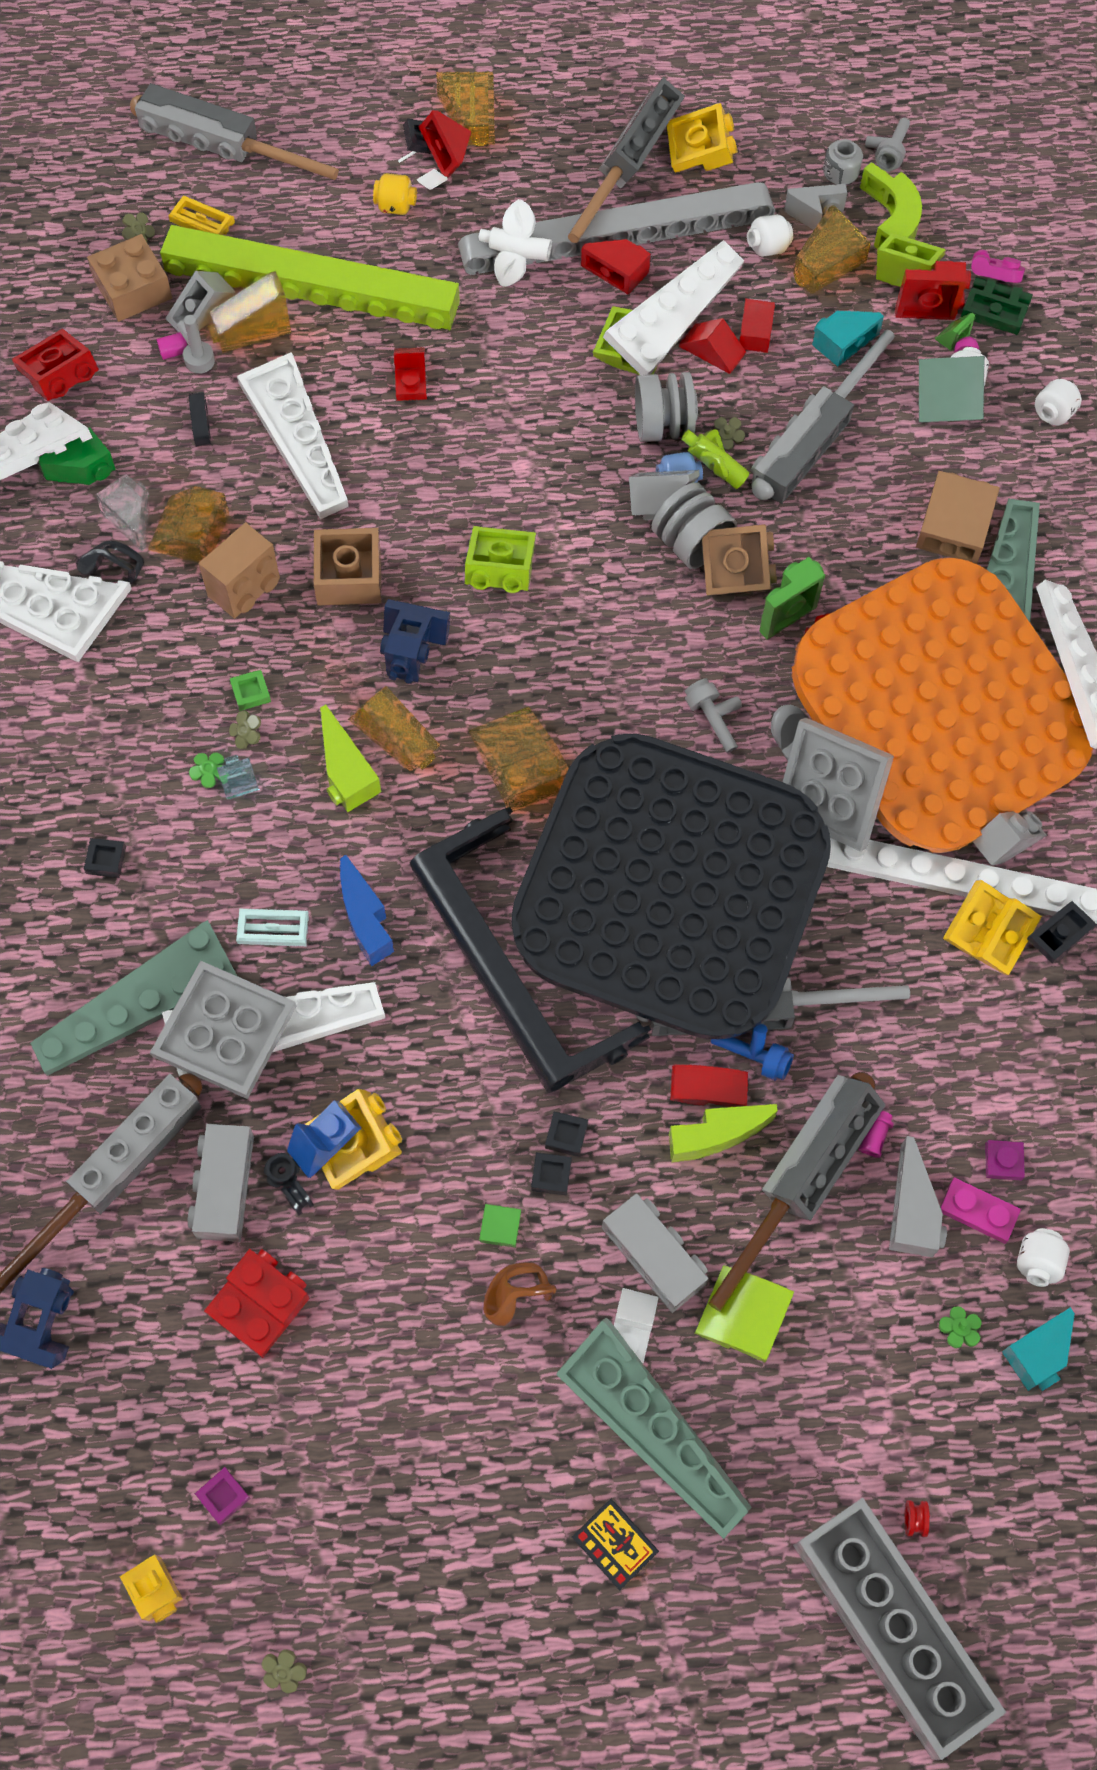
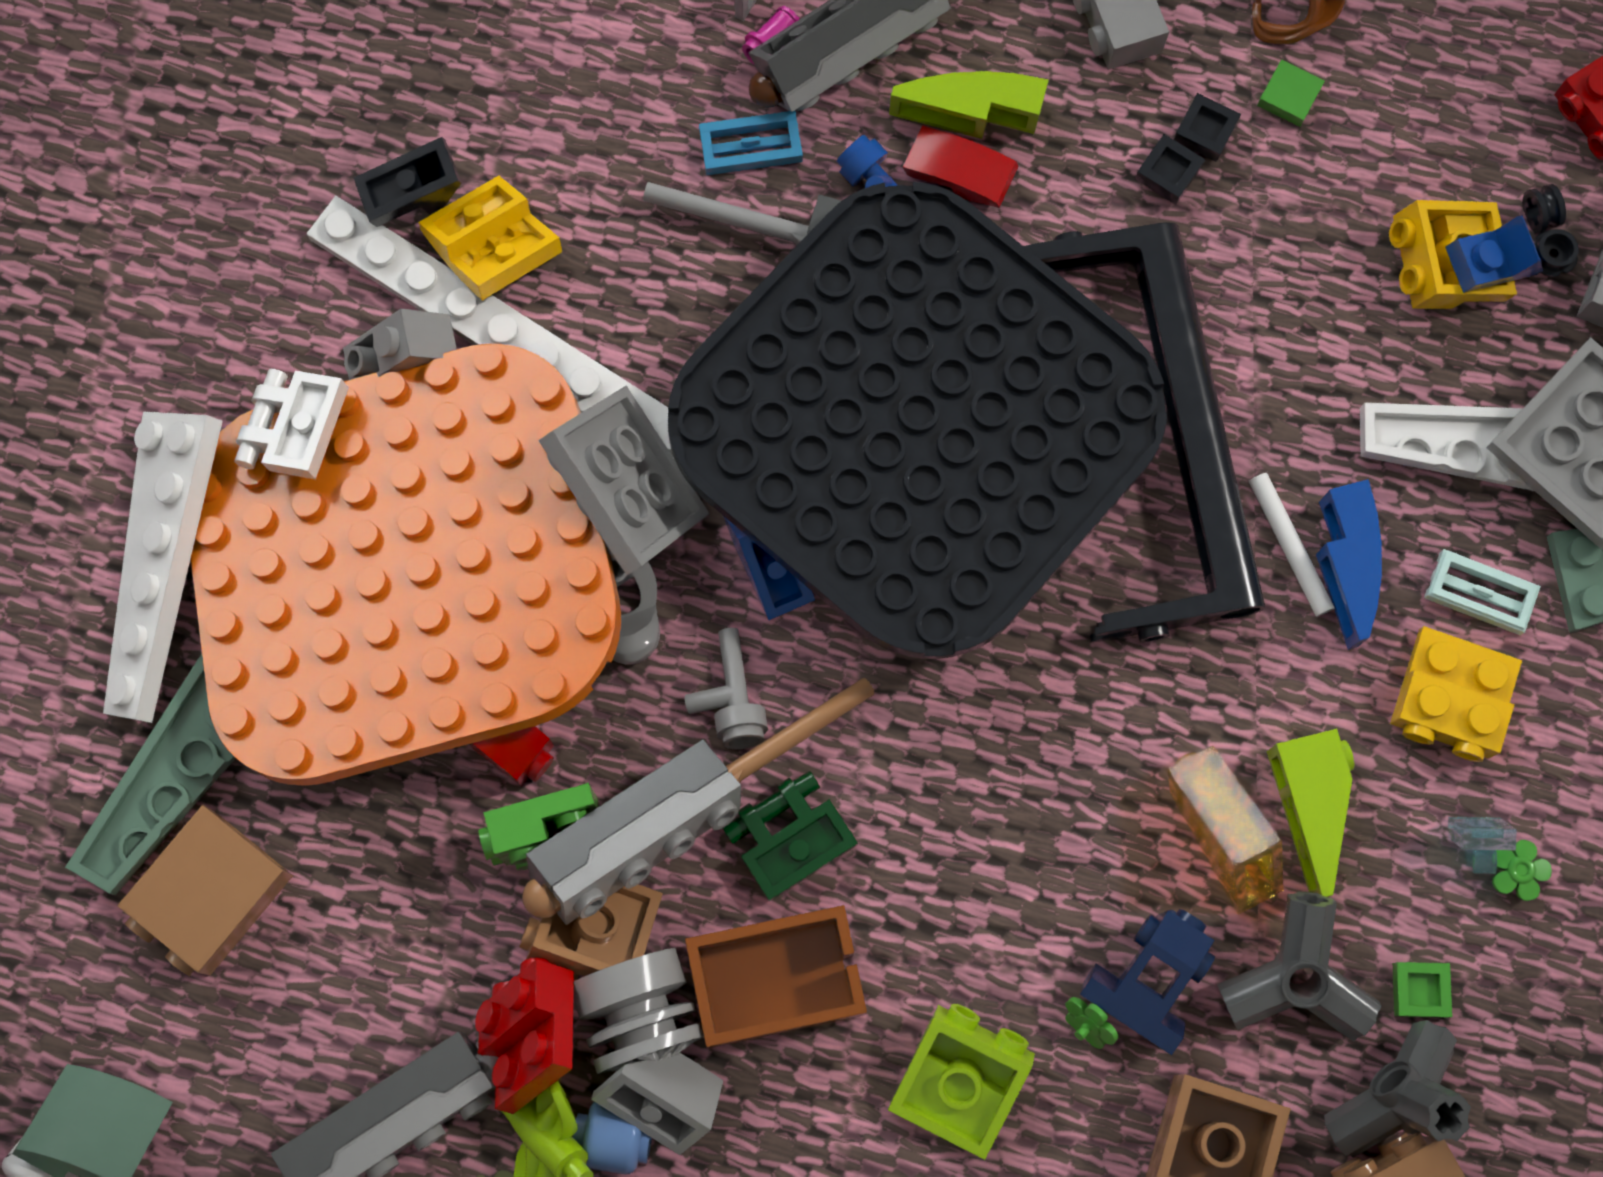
camera: 160 degrees left, 10 degrees up
(245, 729) = (1447, 918): olive plant -> none
(247, 616) = (1404, 1096): none -> dark grey piece
(273, 856) = (1456, 695): none -> yellow plate
(324, 664) = (1303, 945): none -> dark grey piece
(405, 917) = (1291, 545): none -> white piece
(439, 606) = (1090, 1023): none -> bright green plant
(520, 758) = (1049, 724): clear yellow slope -> none
(624, 568) = (775, 977): none -> dark orange piece
(640, 642) = (799, 848): none -> dark green plate
(725, 617) = (656, 819): none -> piece
(748, 501) = (529, 1030): none -> red plate
(831, 1070) = (752, 160): none -> dark azure tile
(1041, 758) = (302, 427): none -> white plate

